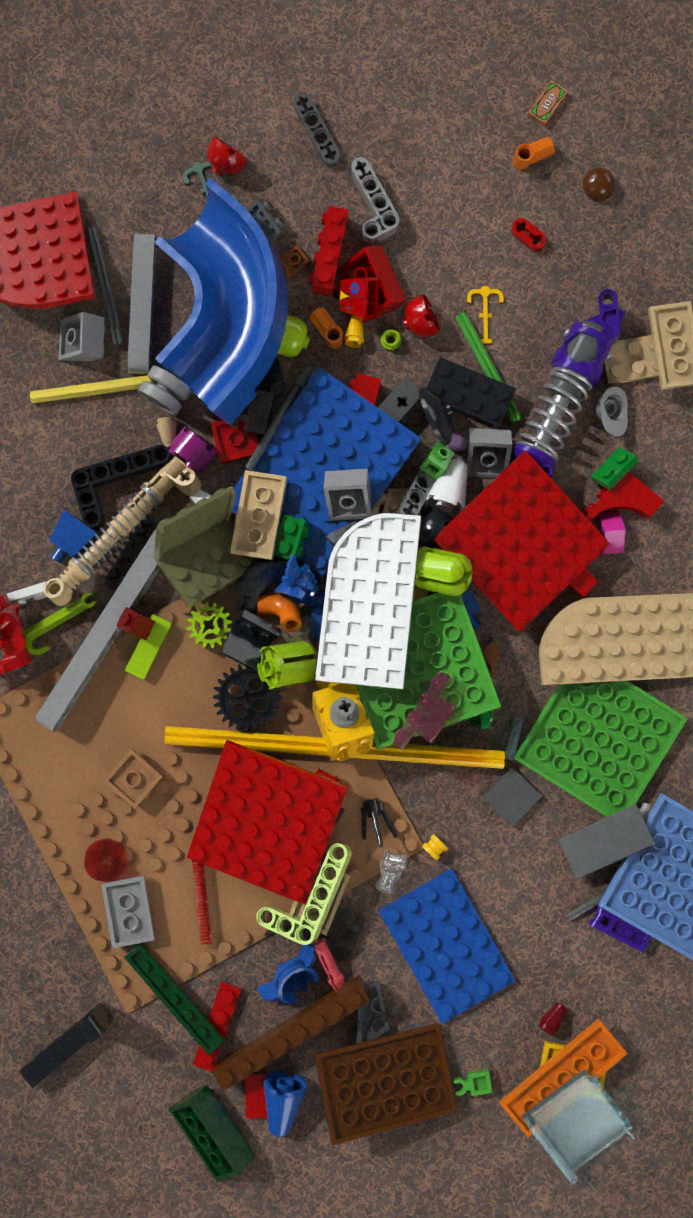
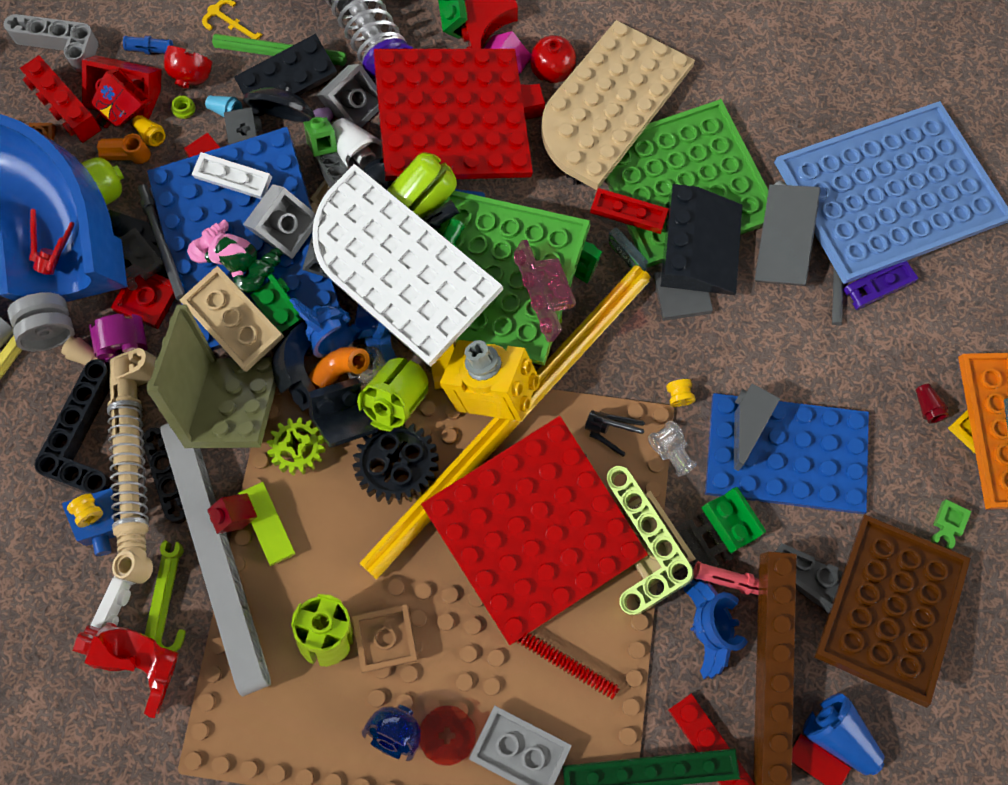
camera: 50 degrees left, 15 degrees down
(68, 531) = (84, 510): none -> yellow wheel
(83, 828) = (394, 731): none -> clear blue cylinder
(112, 728) = (322, 630): none -> lime cylinder
(202, 364) = (47, 259): none -> red plant
(301, 481) = (235, 255): none -> hair
(354, 433) = (231, 175): none -> white plate
(371, 941) = (734, 520): none -> green bracket
(413, 370) = (222, 104): none -> medium azure cone
(419, 271) = (147, 44): none -> blue pin
(422, 618) = (453, 230): none -> green pin
(438, 603) = (441, 215): none -> black pin
(446, 909) = (750, 419): none -> dark grey slope
(542, 719) = (629, 210): none -> red plate
(556, 785) = (701, 241): none -> black slope
(630, 571) = (553, 59): none -> red cylinder

